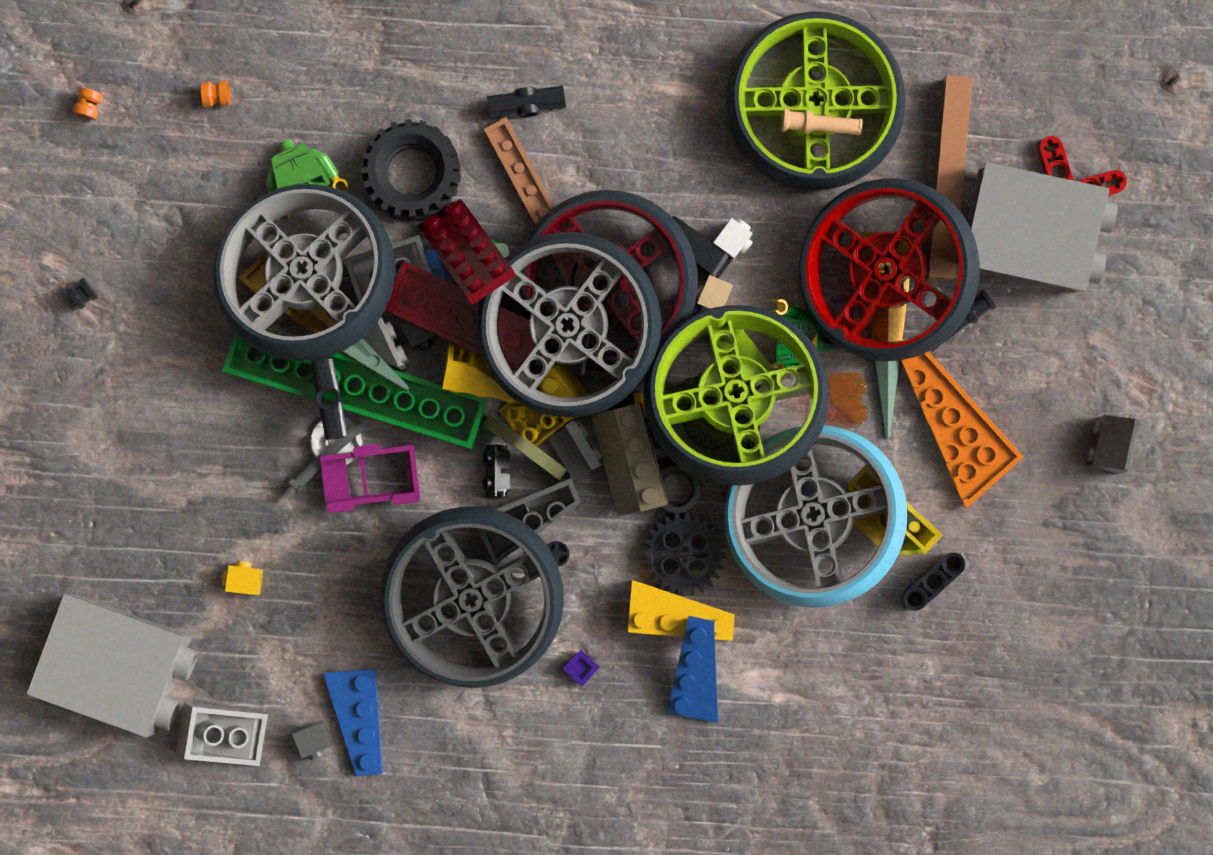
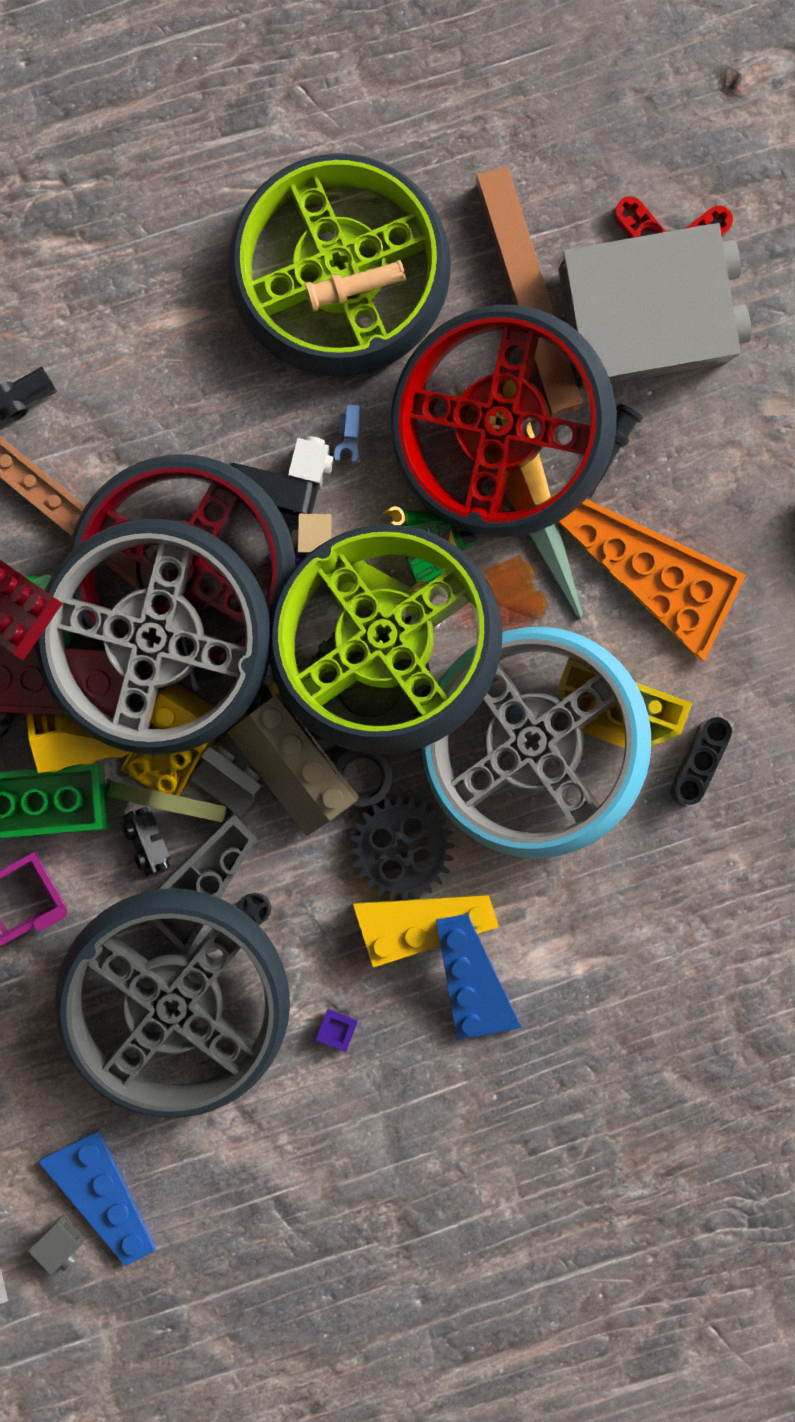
camera: 20 degrees left, 0 degrees up
(773, 224) = (349, 426): none -> medium blue plate

